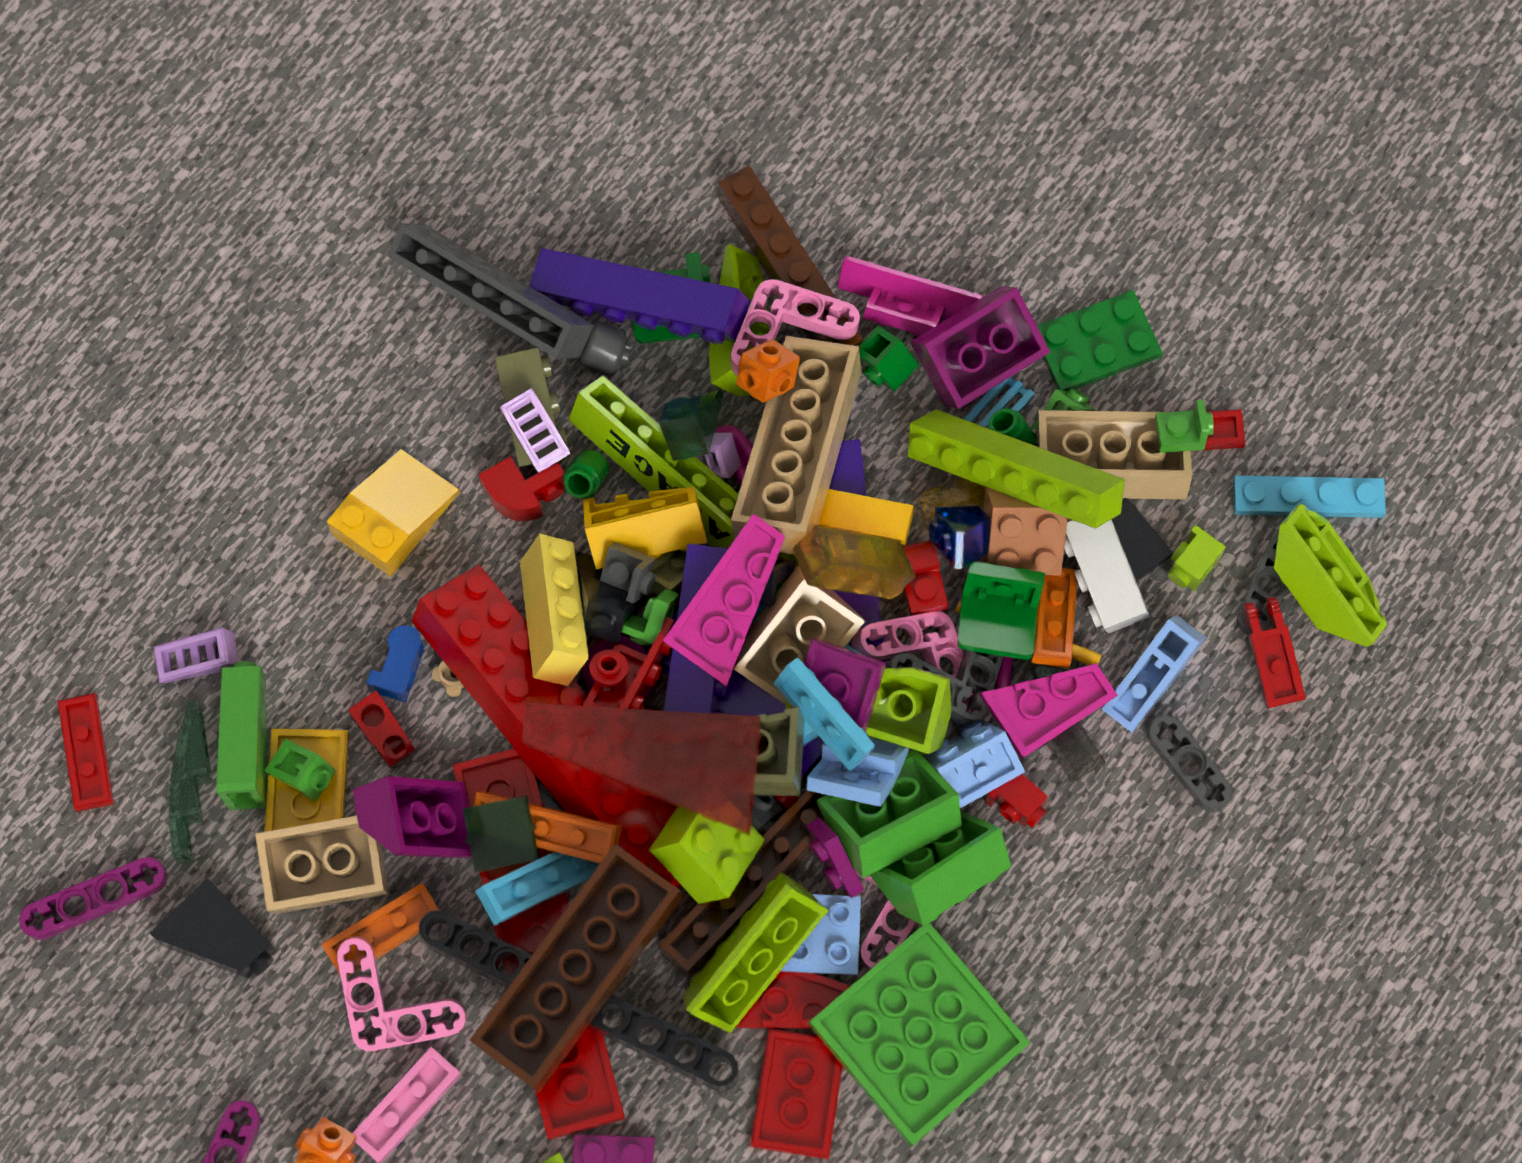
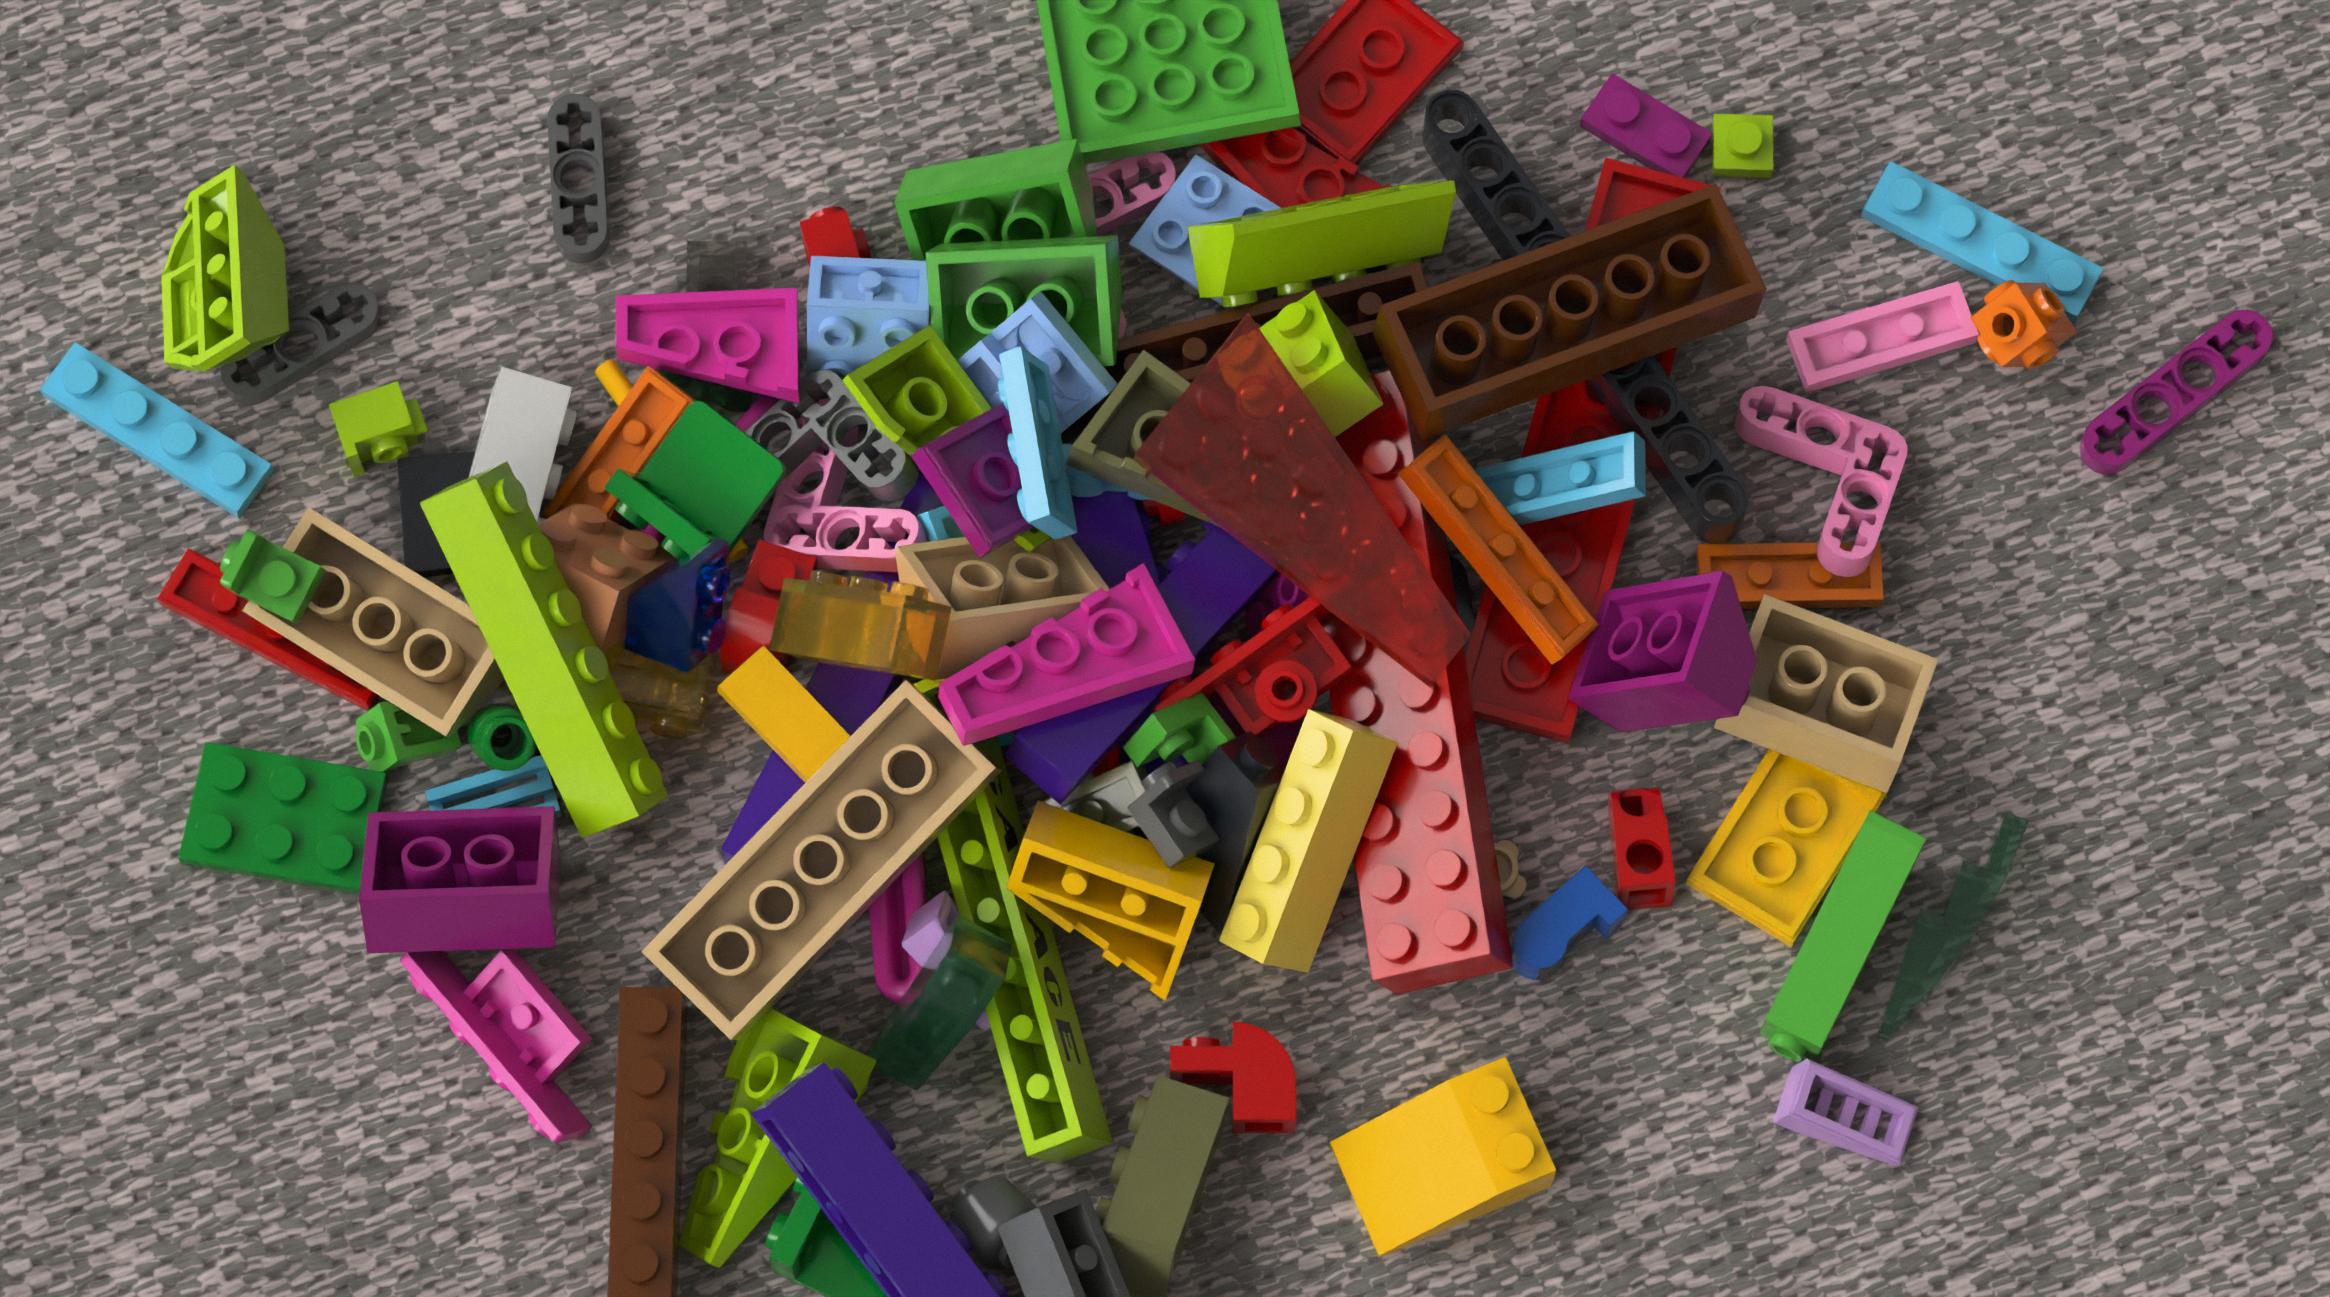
camera: 150 degrees left, 0 degrees up
(85, 752) = (2074, 1067): red tile -> none
(92, 893) = (2164, 842): magenta beam -> none
(215, 933) = (2020, 697): black slope -> none
(300, 769) = (1787, 845): bright green bracket -> none
(501, 833) = (1562, 579): clear green piece -> none
(520, 401) = (1170, 1161): lavender slope -> none
(586, 474) = (1139, 1036): green brick -> none
(767, 370) = (802, 962): orange brick -> none
(785, 310) = (703, 1074): bright pink beam -> none
(829, 850) = (1139, 293): magenta plate -> none
(886, 359) = (604, 950): green brick -> none
(1154, 672) = (530, 313): light blue slope -> none
(1274, 656) = (369, 236): red hinge -> none

